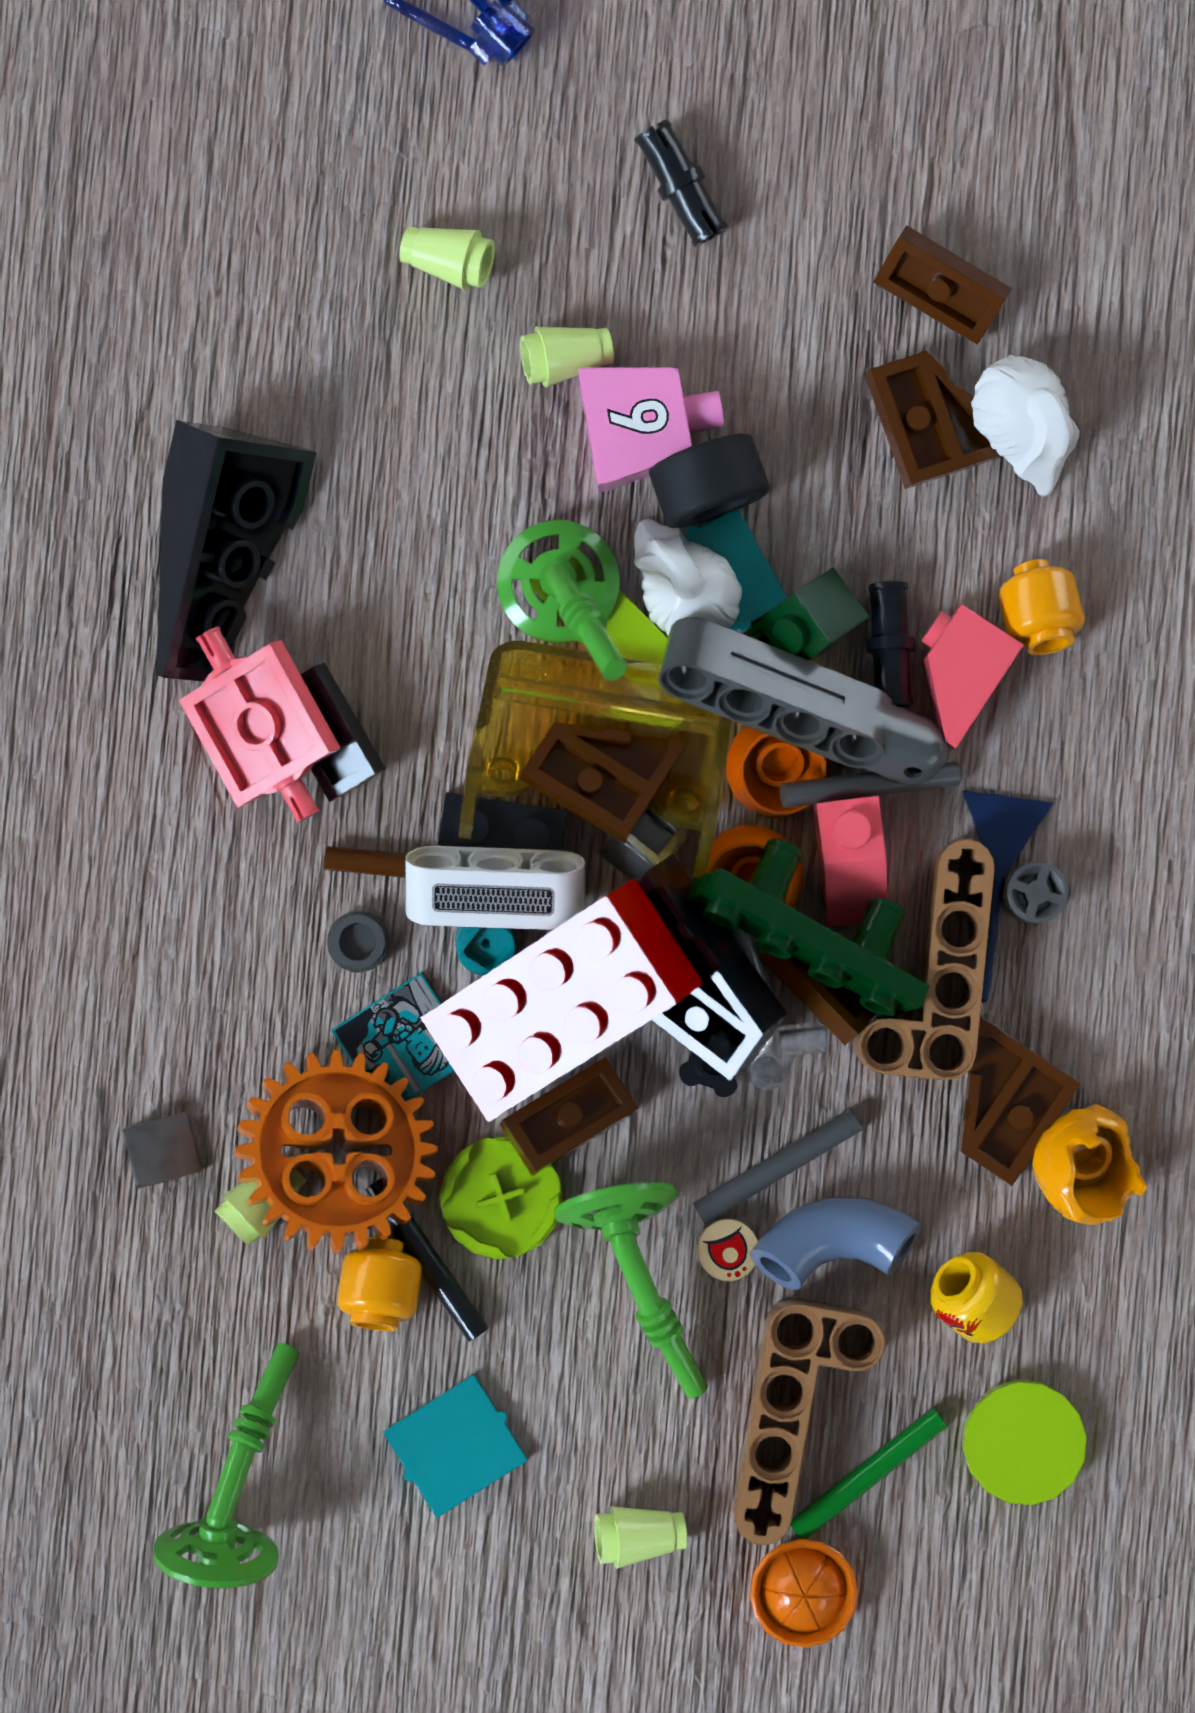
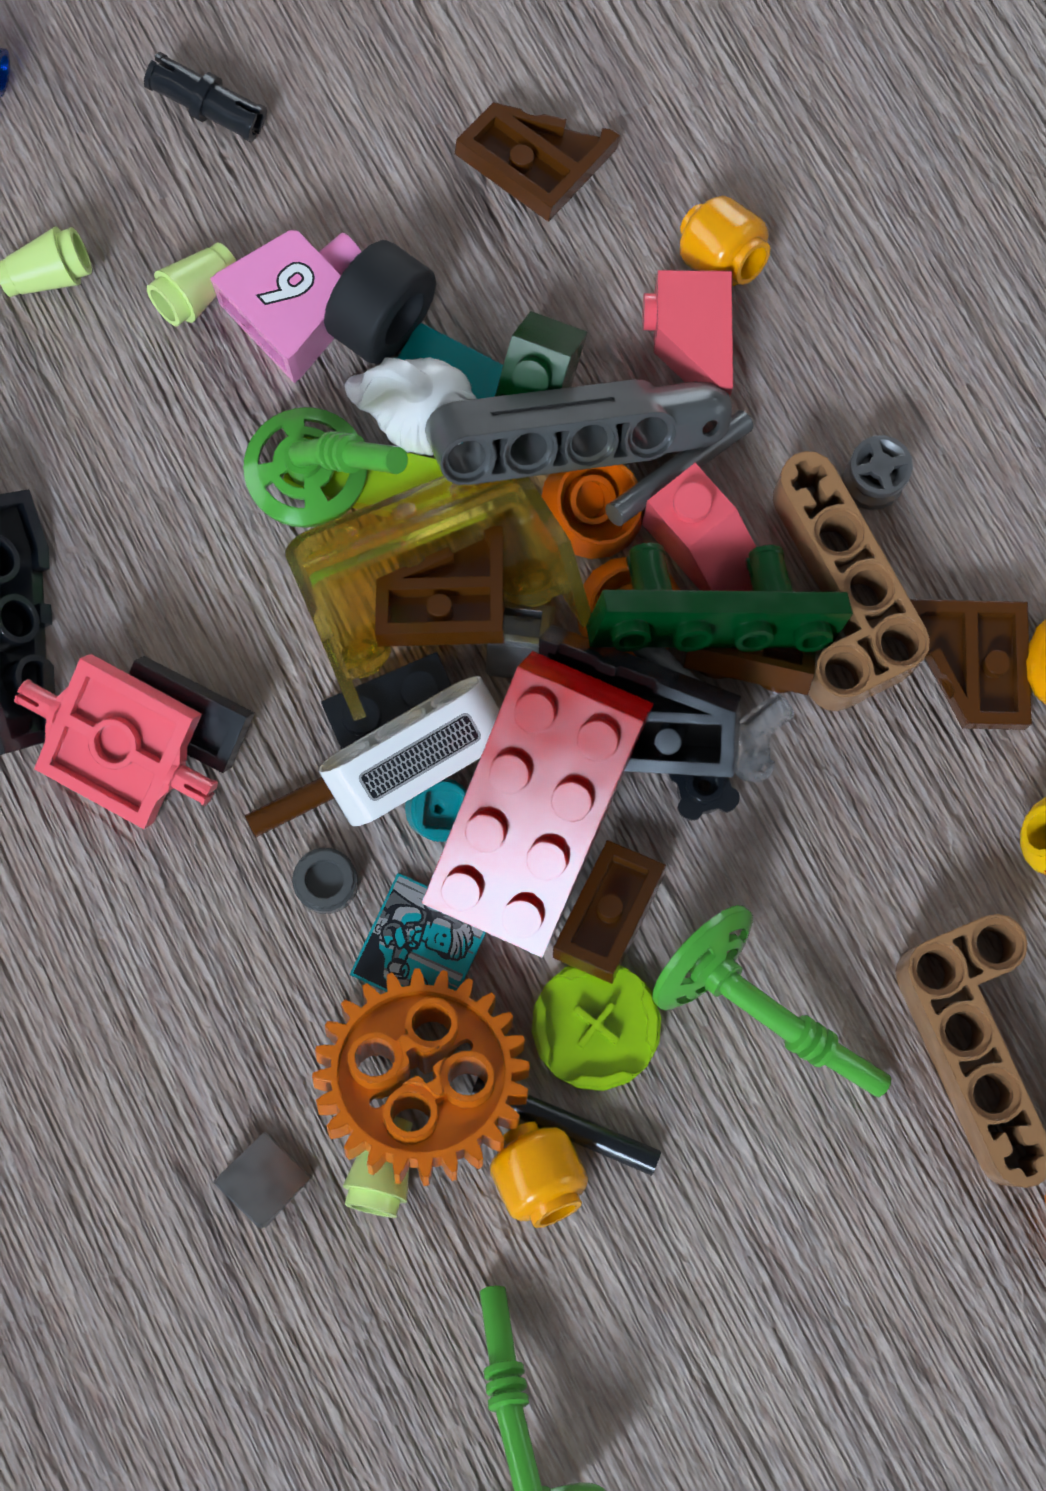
camera: 30 degrees left, 10 degrees down
(455, 1445) = (701, 1281): teal piece -> none
(637, 1535) = (919, 1253): yellowish green cone -> none
(726, 1249) = (825, 941): tan tile -> none
(777, 1166) = (818, 842): dark grey bar -> none
(833, 1231) = (904, 864): sand blue cylinder -> none
(891, 641) = (617, 345): black pin -> none
(942, 285) = (471, 46): reddish brown plate -> none
(1004, 829) = (811, 431): dark blue piece -> none
(1026, 419) = (613, 101): white hair -> none

